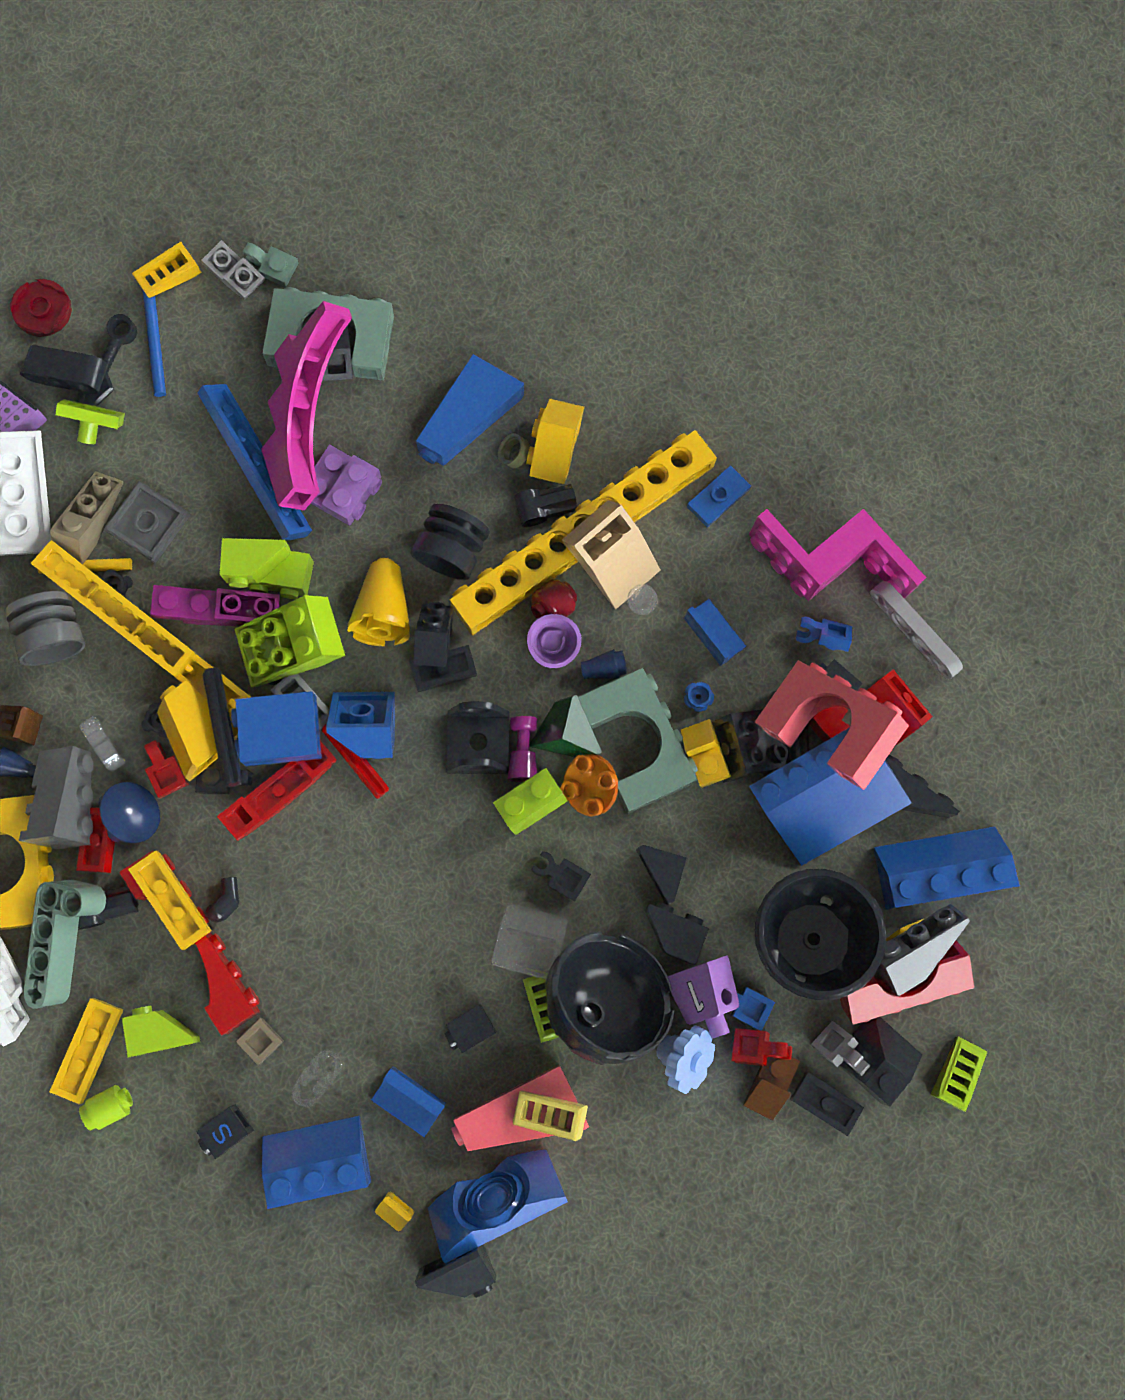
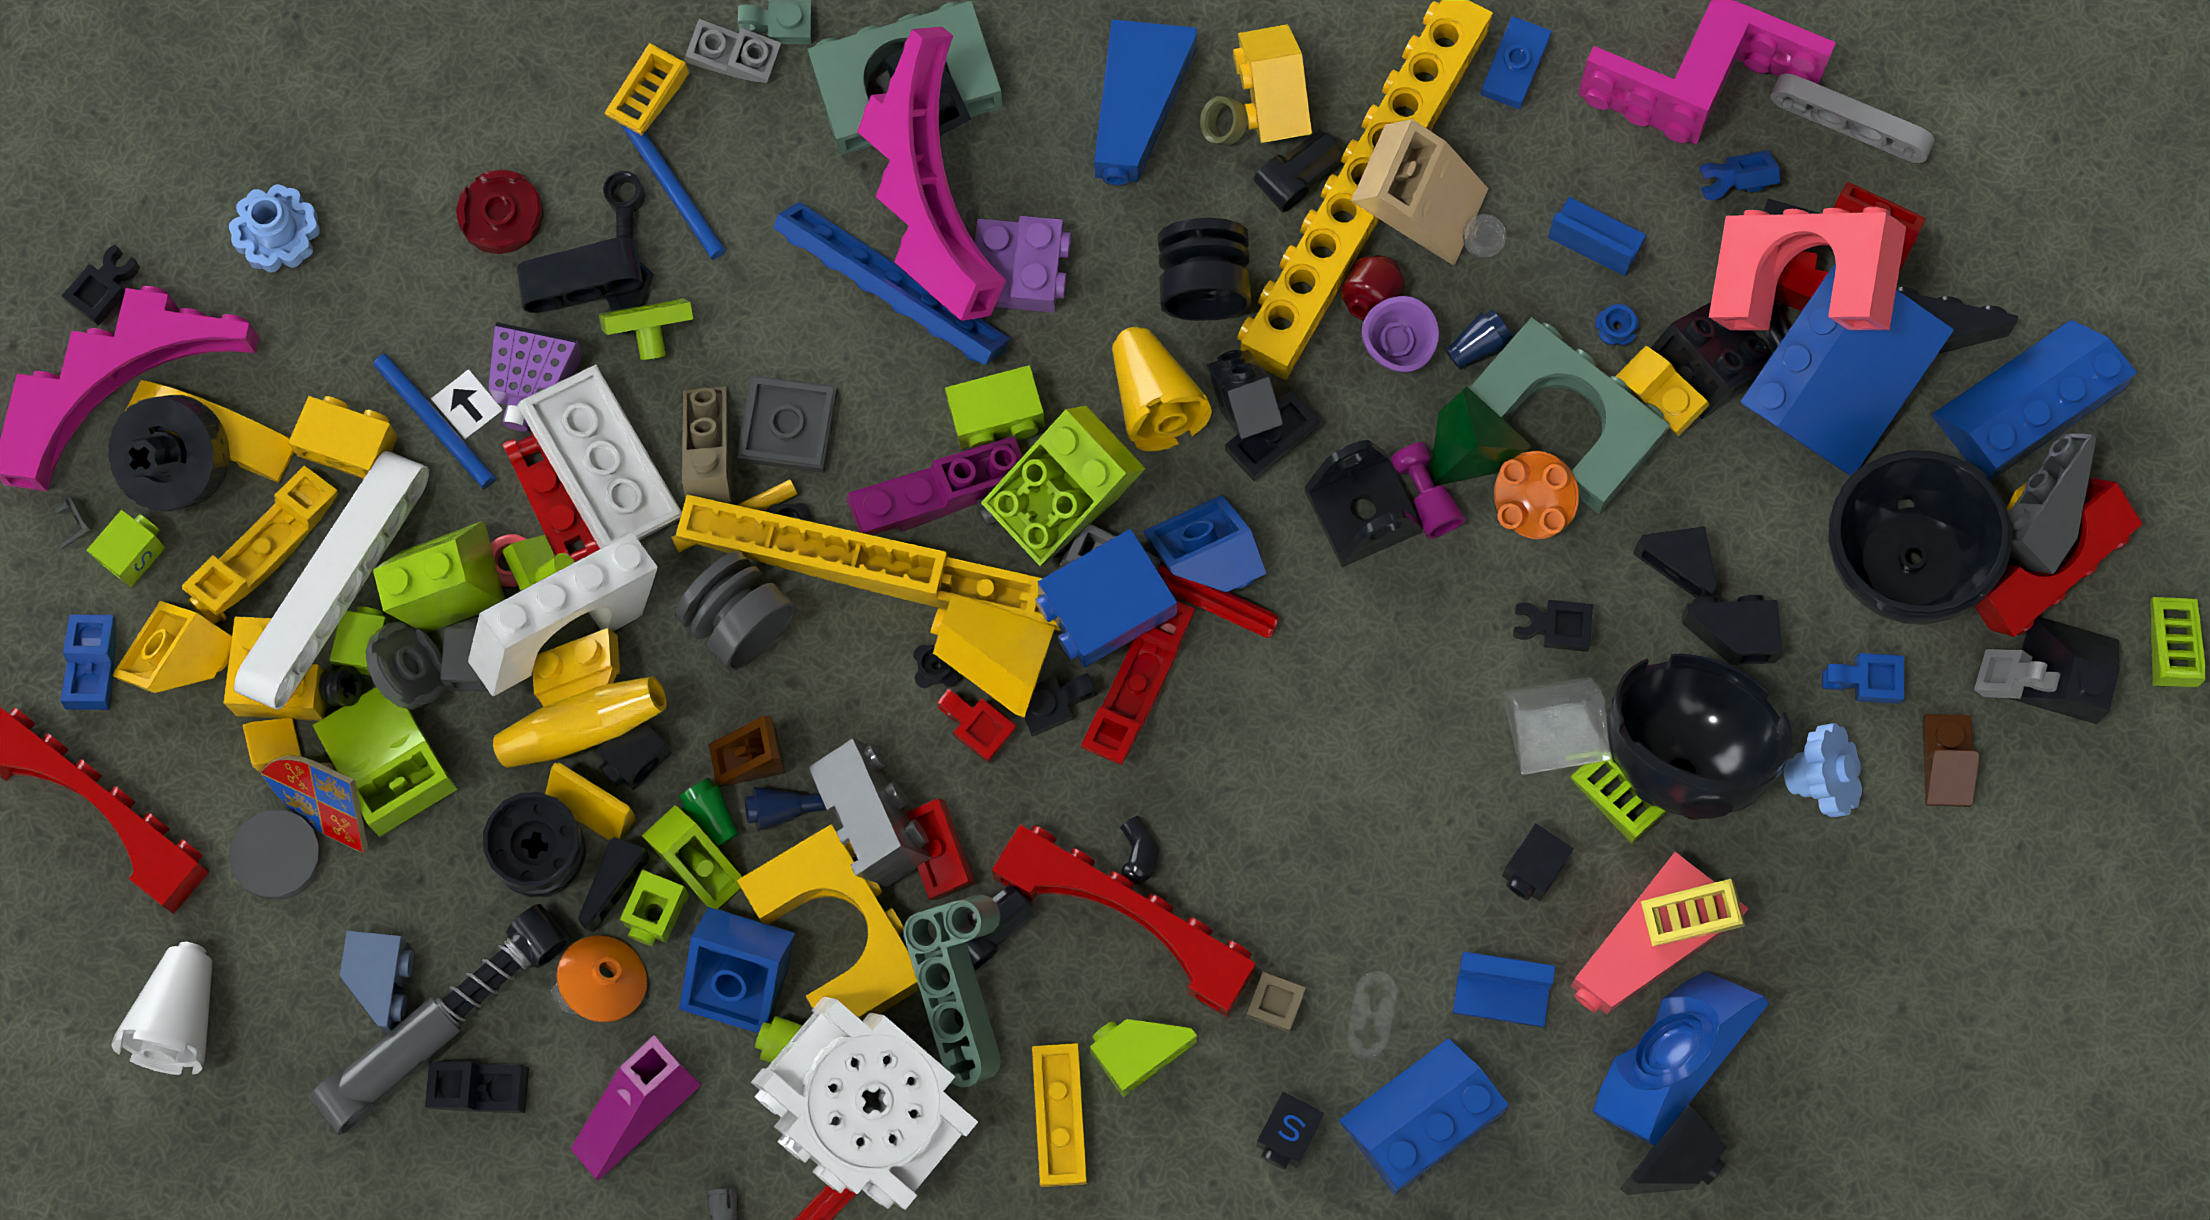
camera: 15 degrees left, 5 degrees down
(102, 743) = (879, 726): clear beam -> none
(106, 1108) = (1122, 1171): lime brick -> none
(129, 813) = (962, 794): dark blue dish -> none
(170, 900) = (1079, 869): yellow plate -> none
(222, 727) = (1034, 627): black axle -> none
(250, 559) = (962, 402): lime slope -> none
(394, 1211) = (1554, 1132): yellow slope -> none
(530, 801) = (1471, 548): lime brick -> none
(706, 994) = (1814, 679): medium lavender torso -> none
(754, 1046) = (1905, 722): red plate -> none
(826, 1103) = (2029, 751): black plate -> none

